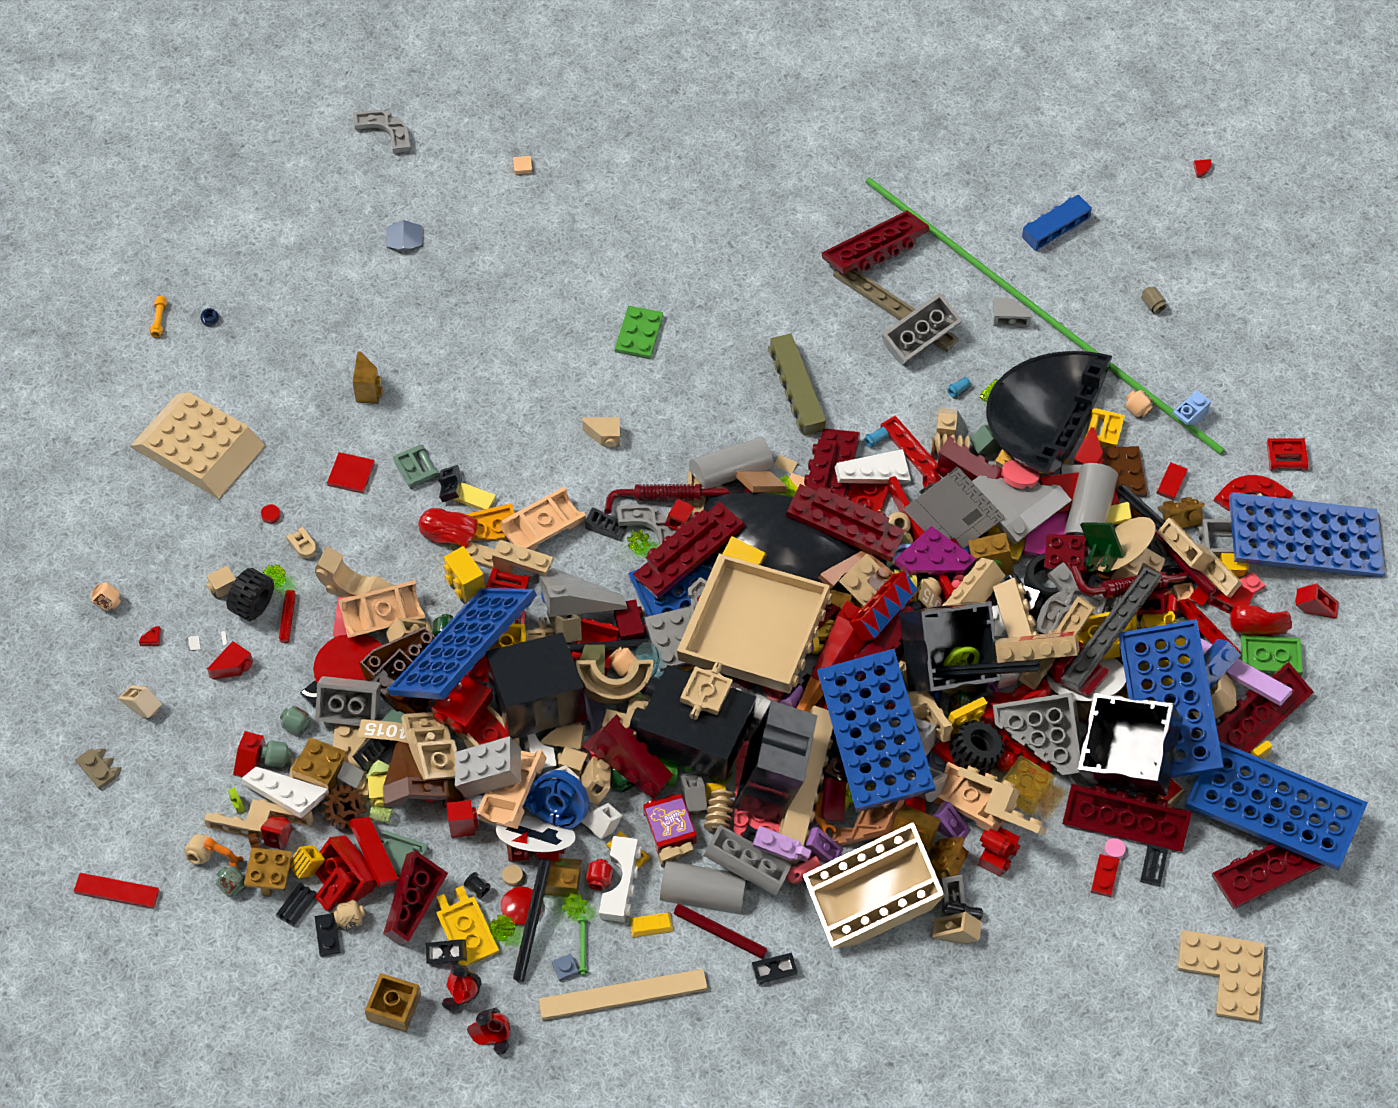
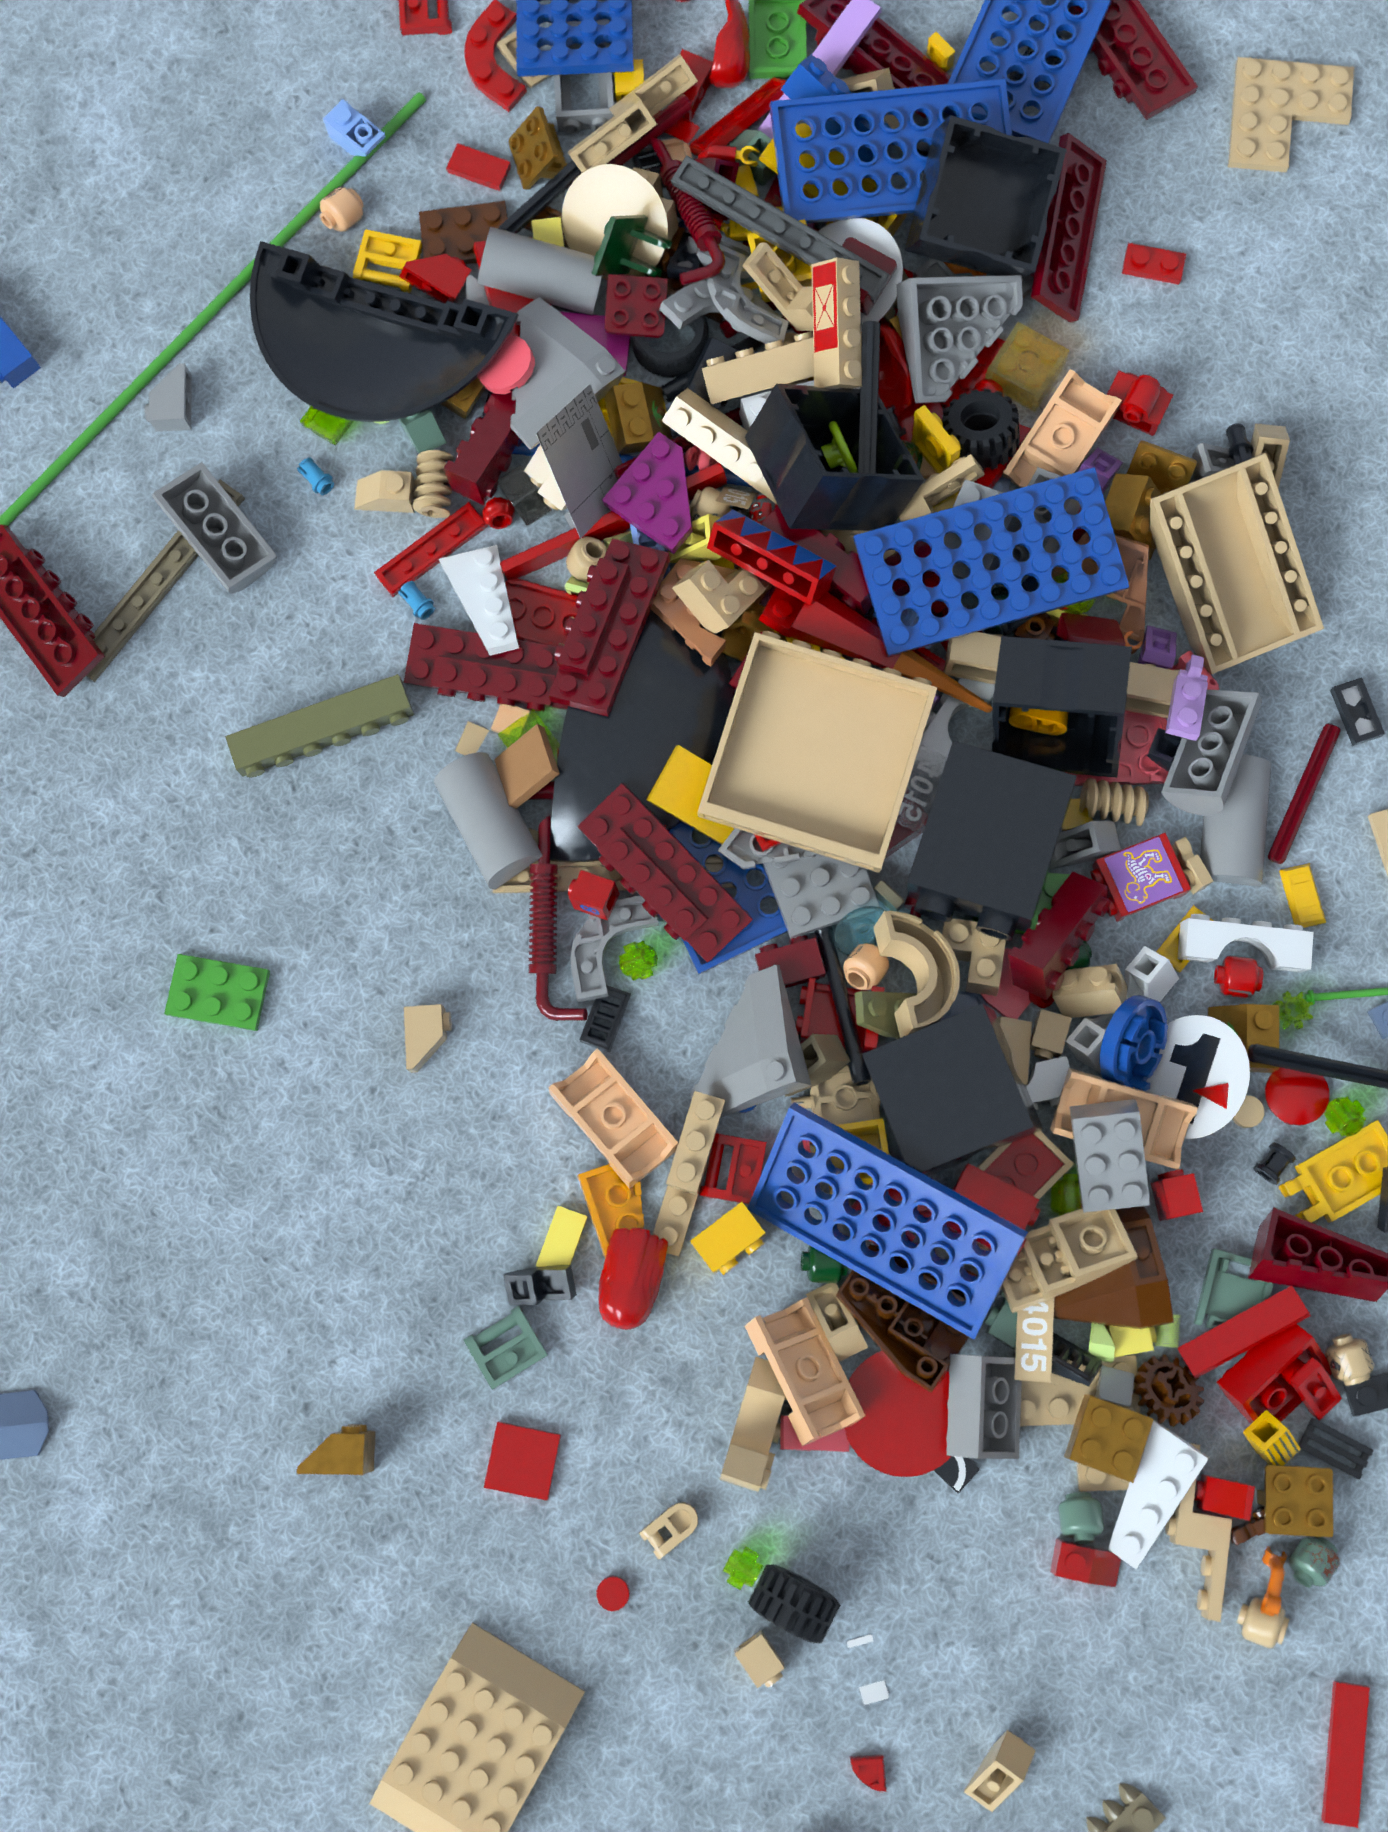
camera: 85 degrees left, 20 degrees up
(209, 312) = (193, 1774): dark blue plate -> none
(230, 662) = (913, 1619): red slope -> none
(236, 801) = (1165, 1576): lime tile -> none
(287, 616) = (813, 1535): red axle -> none
(295, 720) = (1014, 1494): sand green head -> none
(706, 690) = (959, 814): tan plate -> none
(1002, 800) = (1083, 383): tan bracket -> none
(1114, 848) = (1110, 250): bright pink tile -> none
(1150, 880) = (1136, 208): black tile -> none
(1153, 299) = (140, 186): dark tan brick -> none
(1252, 582) = (654, 59): coral plate -> none

